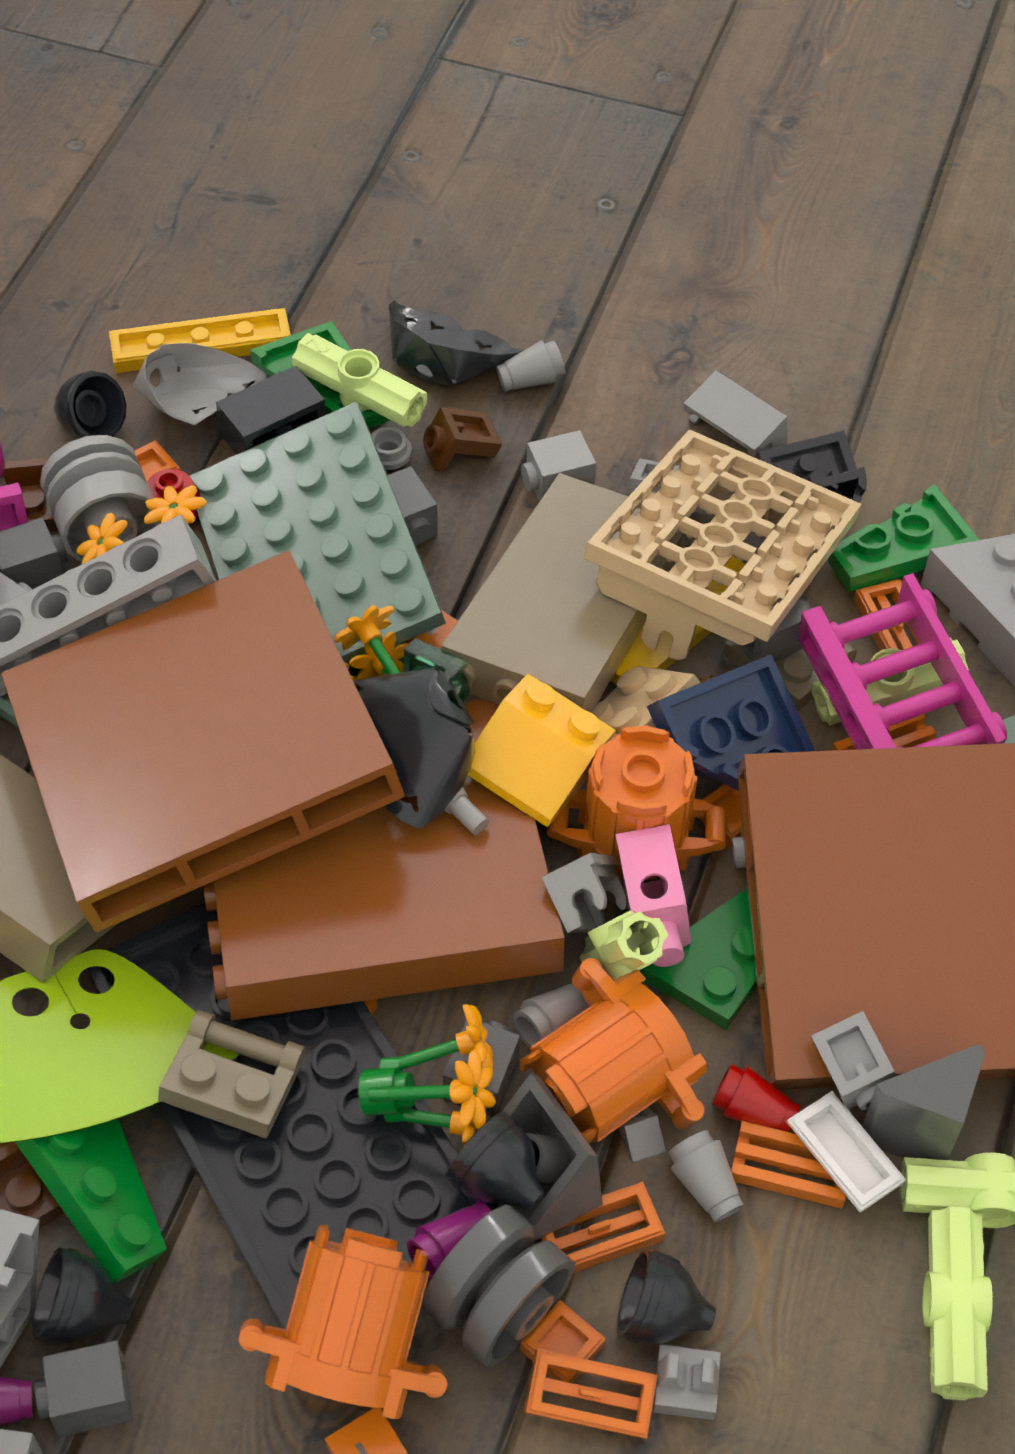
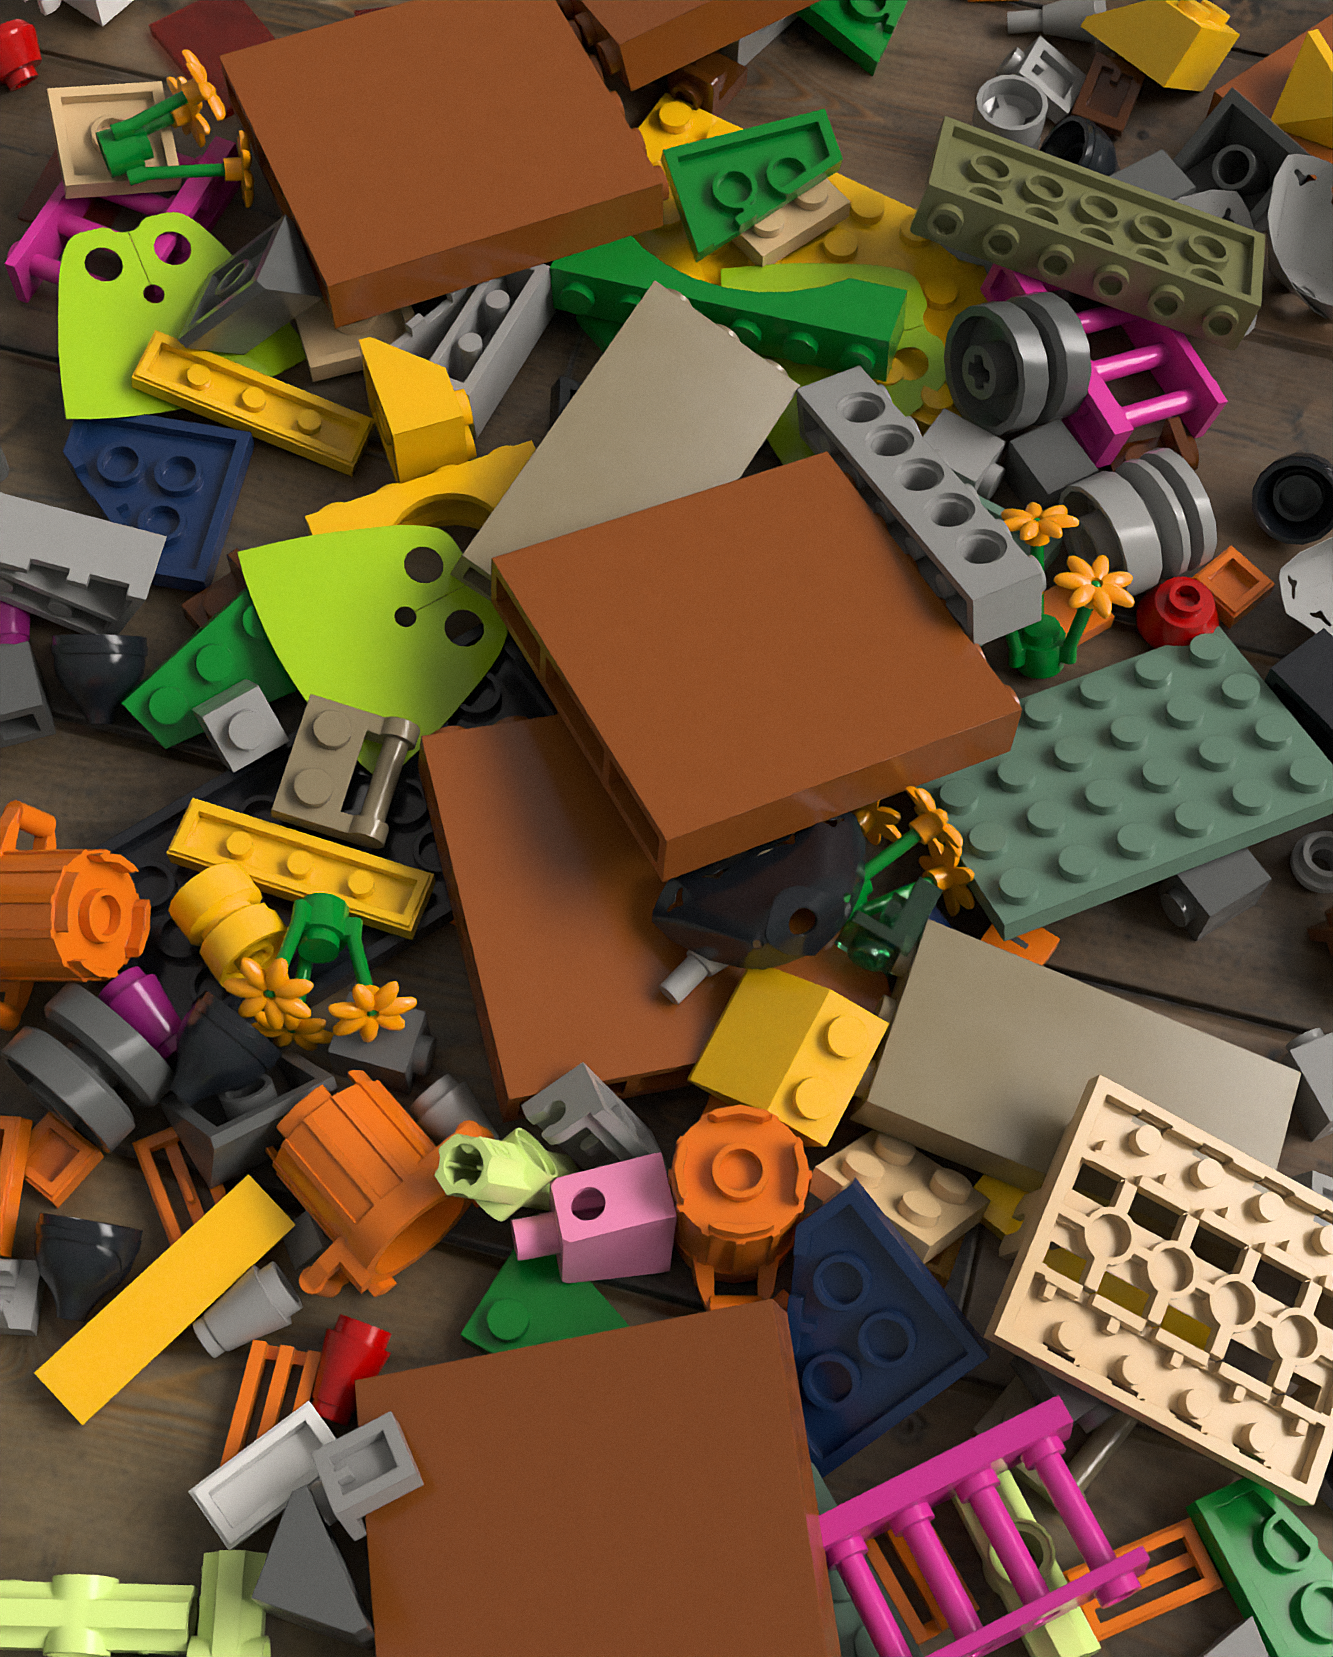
camera: 85 degrees right, 10 degrees up
(165, 1166) = (240, 725): none -> light grey brick
(314, 1122) = (300, 864): none -> yellow tile
(372, 1163) = (226, 918): none -> yellow wheel
(698, 1238) = (164, 1299): none -> yellow tile

